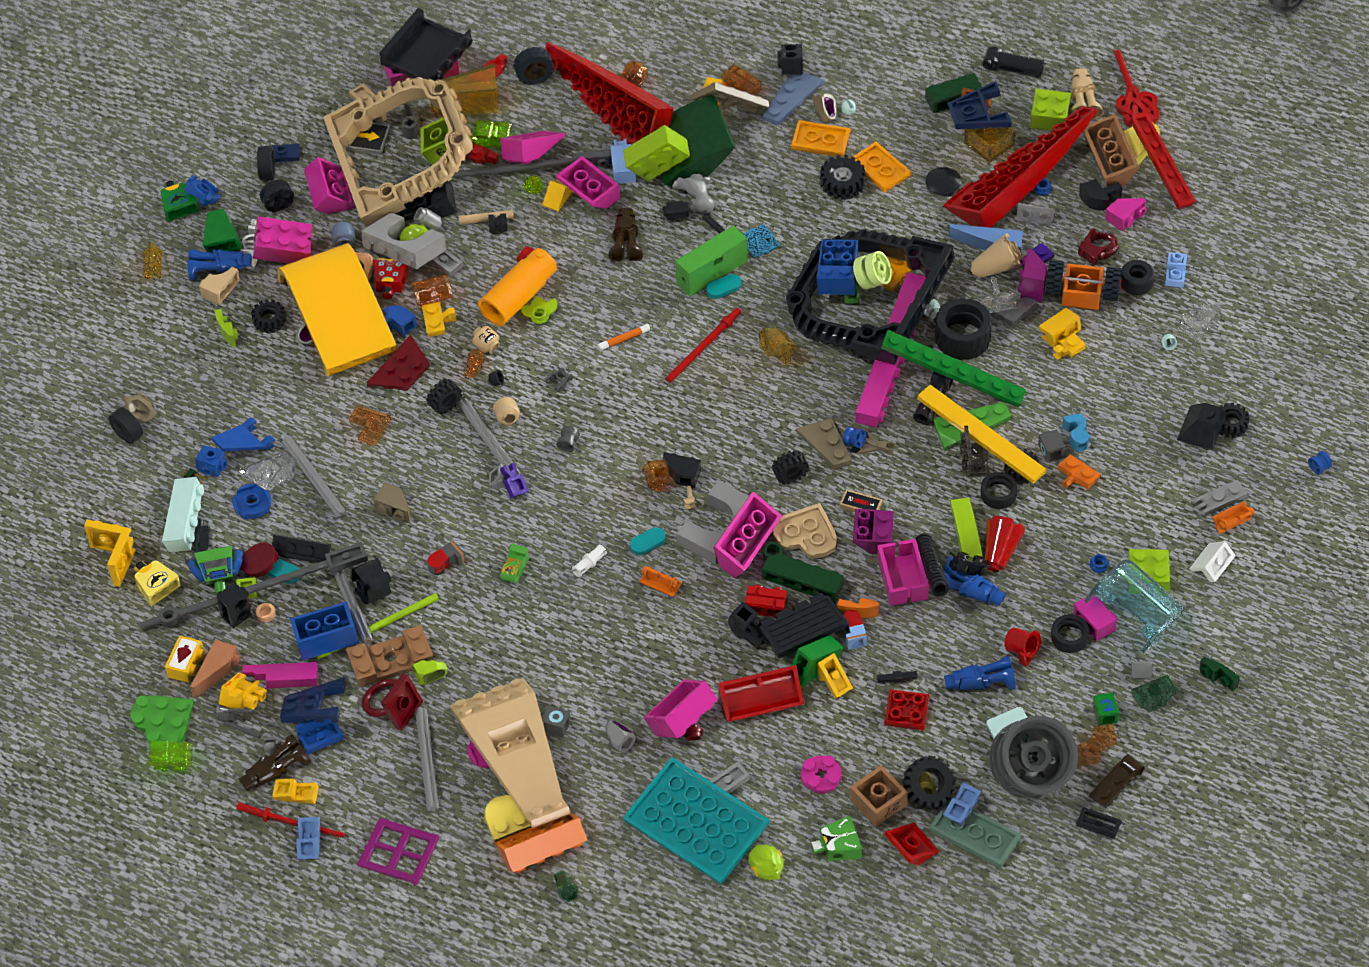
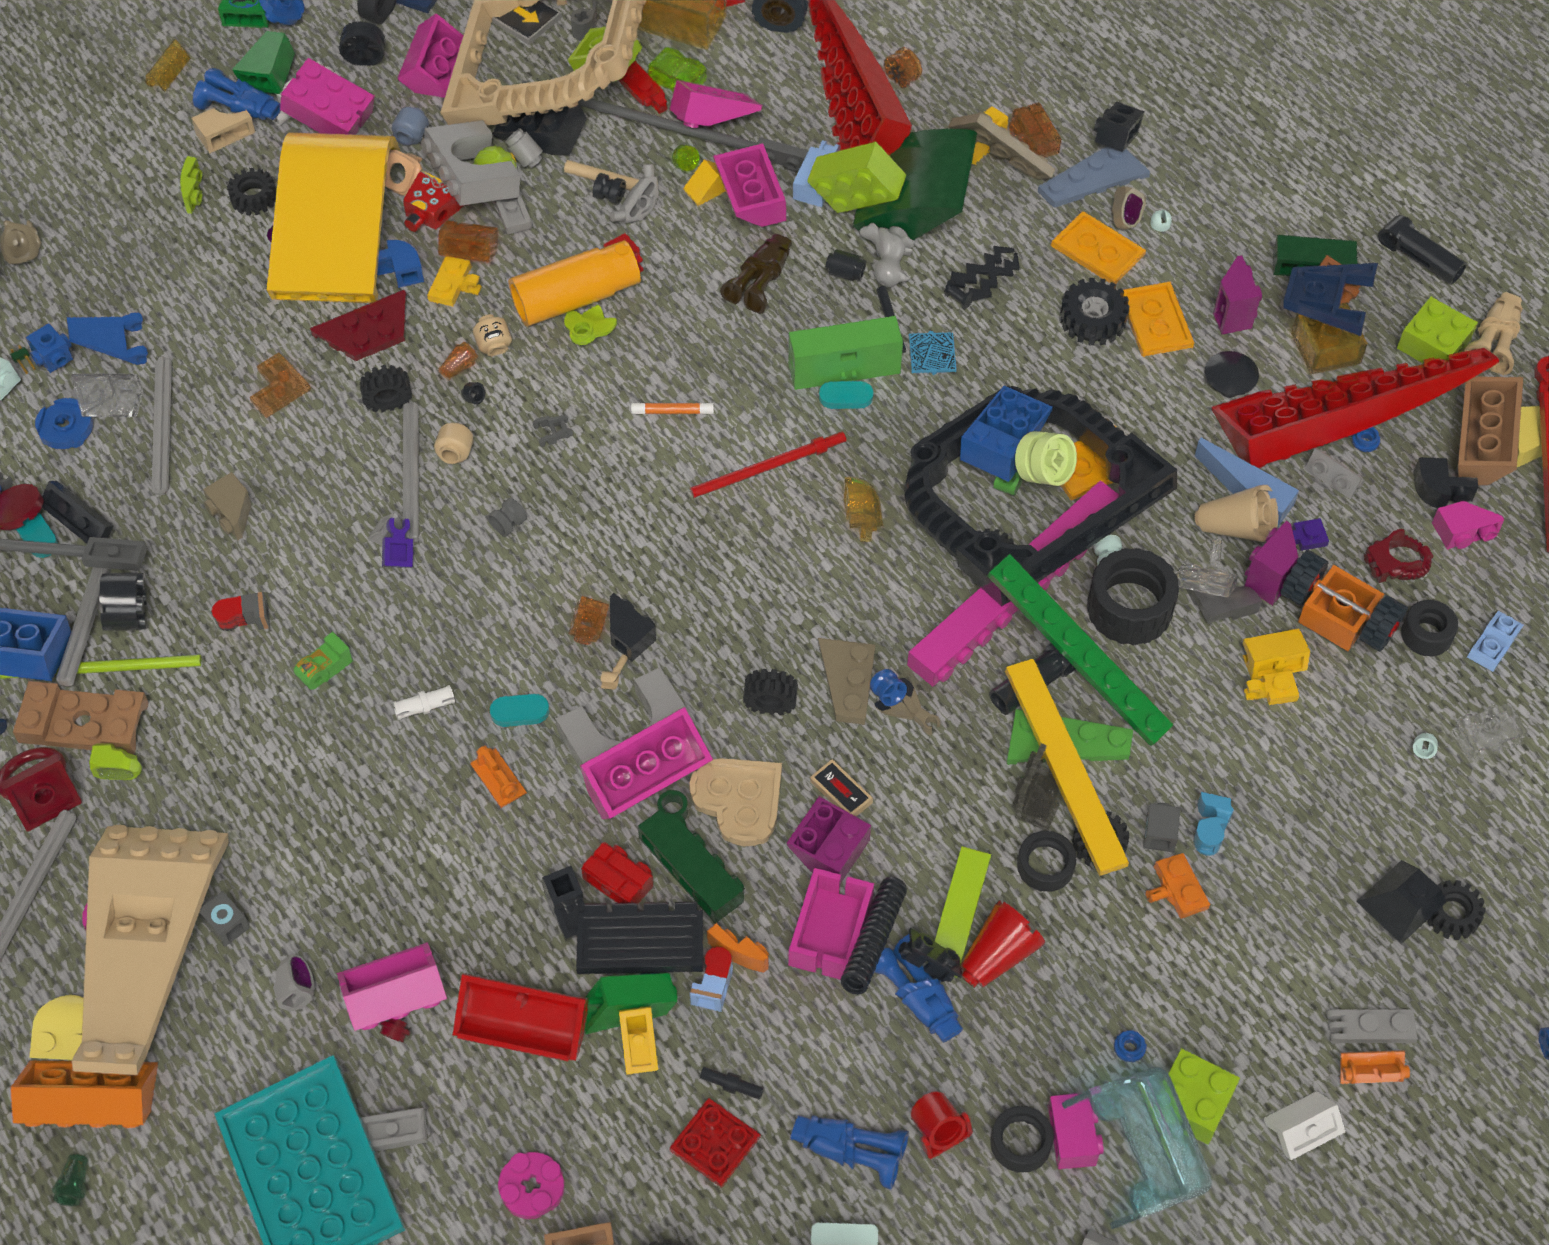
camera: 25 degrees right, 5 degrees up
(521, 221) = (643, 193): none -> light grey piece
(762, 177) = (959, 279): none -> black piece
(924, 135) = (1237, 299): none -> magenta slope

